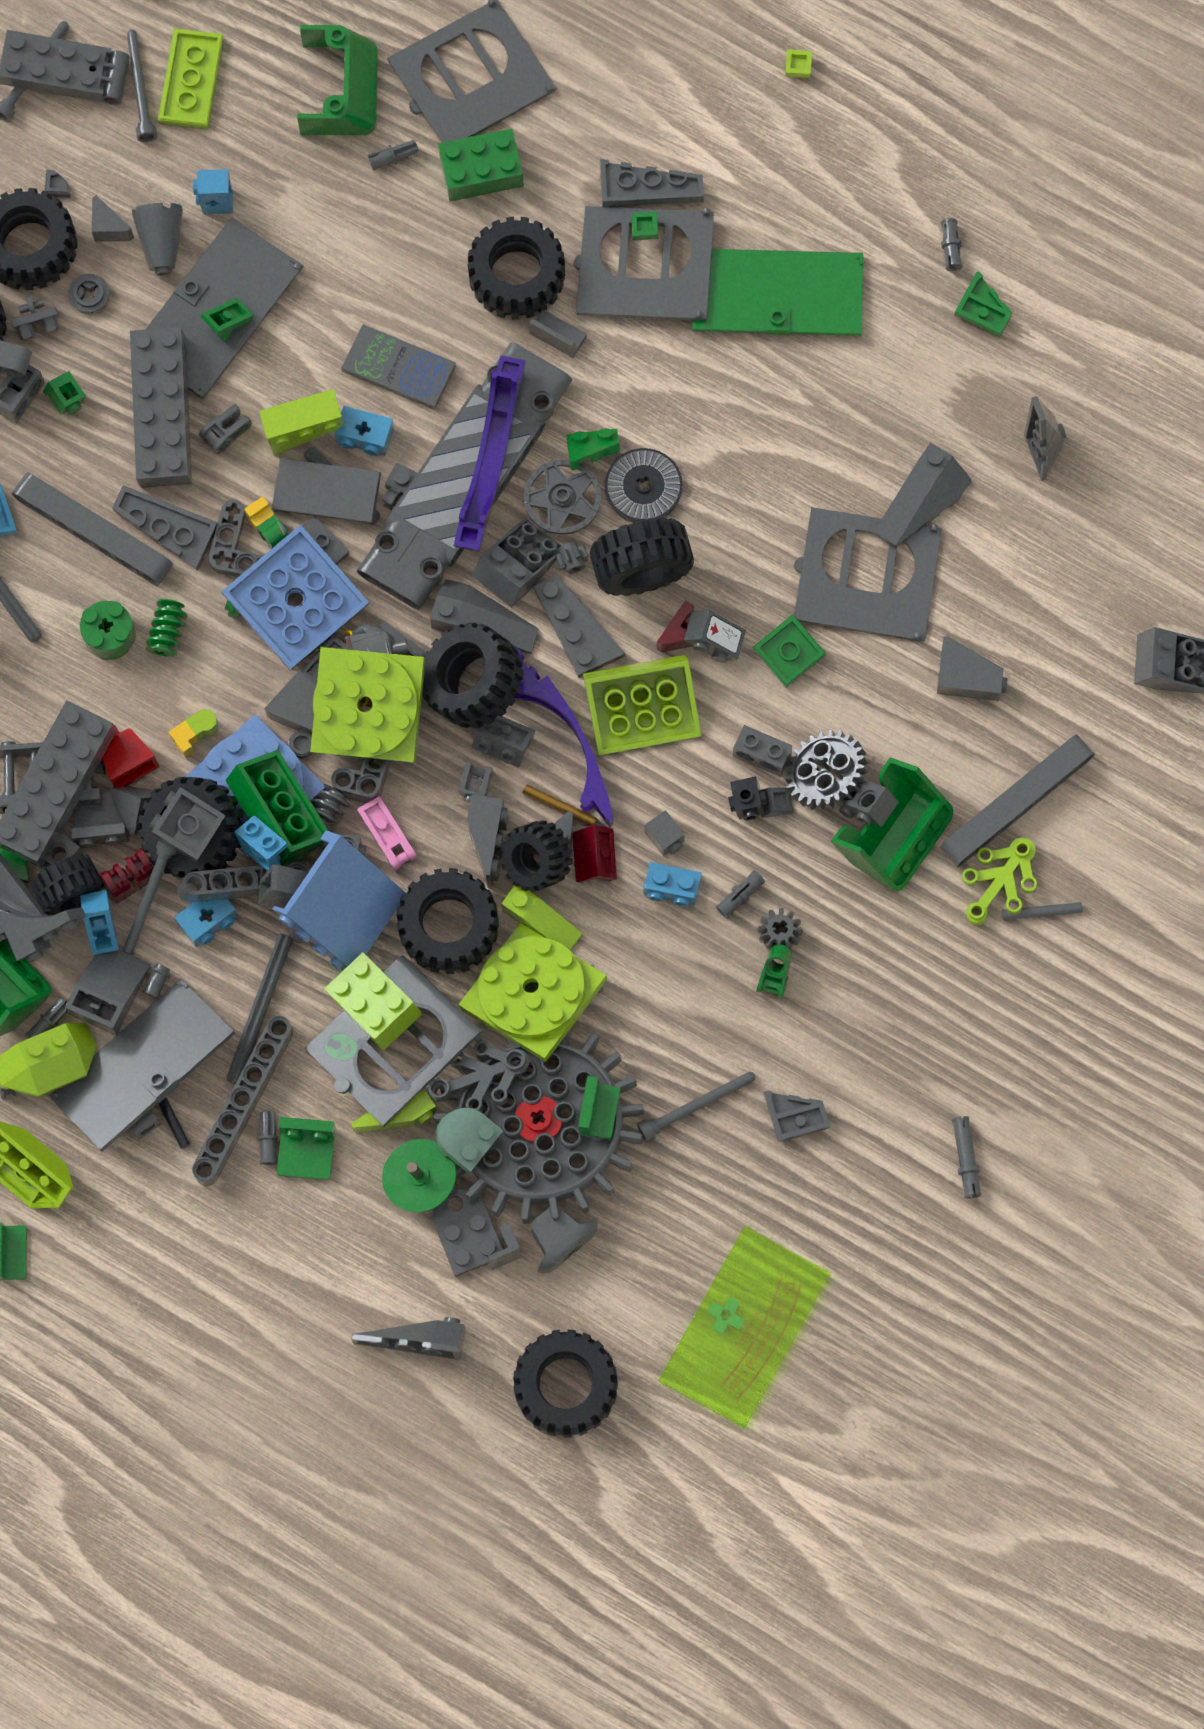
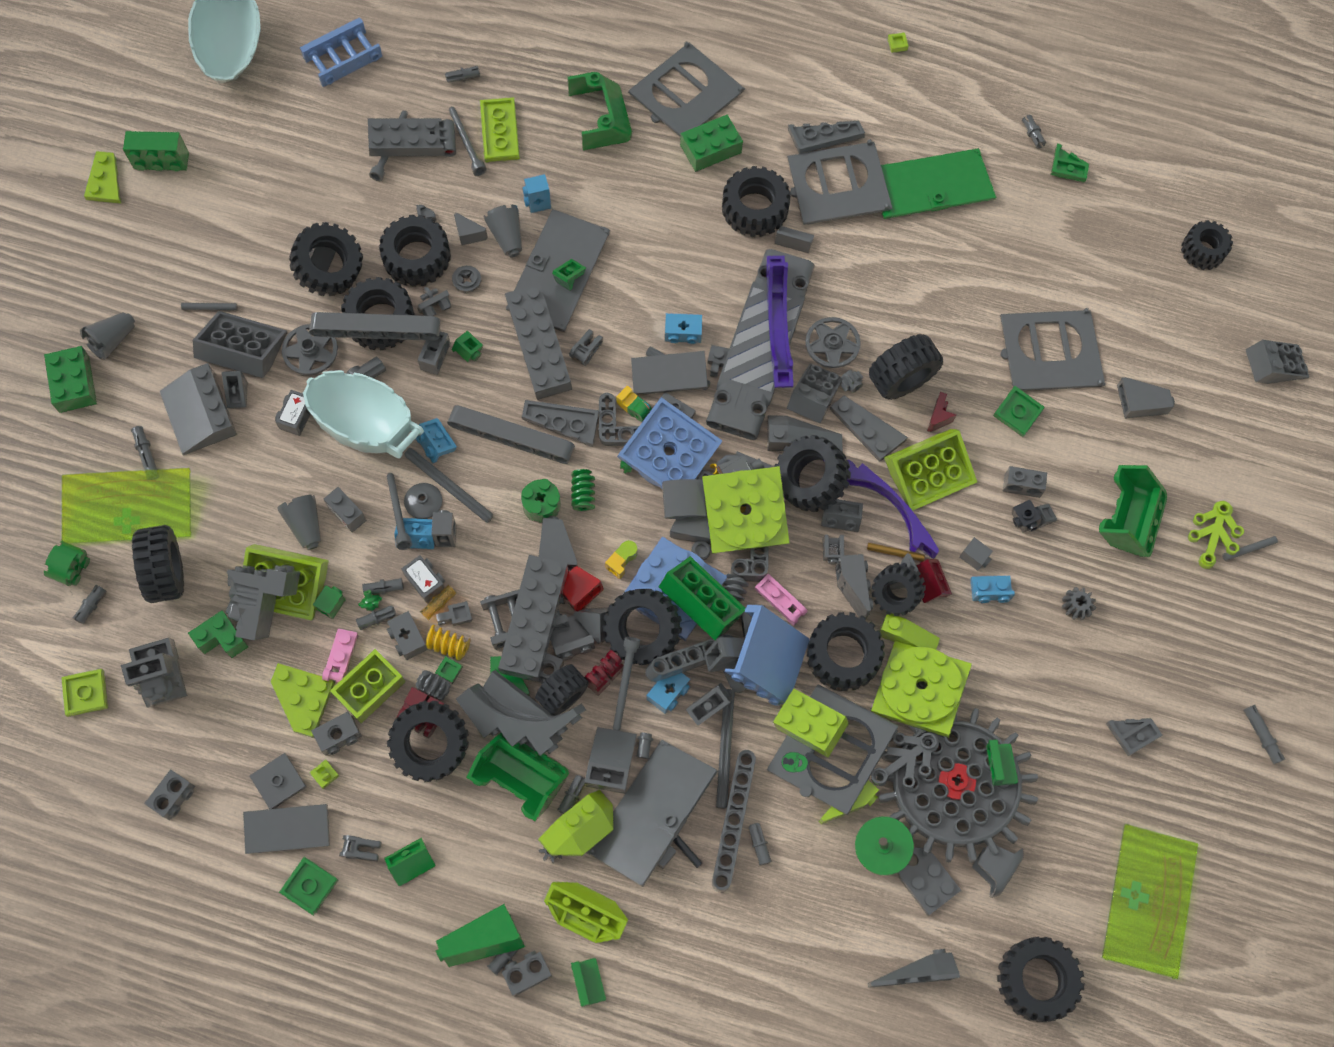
camera: 20 degrees left, 5 degrees down
(99, 922) = (595, 715): dark azure brick -> none
(112, 692) = (556, 543): none -> dark grey slope
(186, 823) = (644, 623): dark grey plate -> none
(251, 947) = (709, 704): none -> dark grey brick
(260, 842) = (699, 626): dark azure bracket -> none
(291, 671) = (683, 499): none -> dark grey slope
(301, 420) = (640, 328): lime wedge -> none
(306, 1148) = (790, 845): green bracket -> none
(392, 154) = (649, 149): dark grey axle -> none
(398, 366) = (693, 282): dark grey tile -> none
(466, 1136) = (912, 808): sand green slope -> none
(510, 1253) = (966, 881): dark grey panel -> none
(591, 445) = (842, 304): green wing -> none
(641, 466) = (870, 320): piece -> none
(644, 226) = (833, 158): green plate -> none
(651, 1127) = (1037, 766): dark grey piece -> none
(714, 635) = (968, 410): dark grey brick -> none
(740, 894) = (1037, 594): dark grey pin -> none
(775, 975) = (1087, 637): green piece -> none
(839, 750) = (1075, 484): dark grey gear -> none
(869, 805) = (1109, 499): dark grey brick -> none
(928, 490) = (1074, 288): dark grey wedge -> none
(1017, 800) = (1207, 477): dark grey beam -> none
(1043, 436) = (1141, 233): dark grey wedge -> none
(1139, 451) = (1212, 234): none -> black tyre

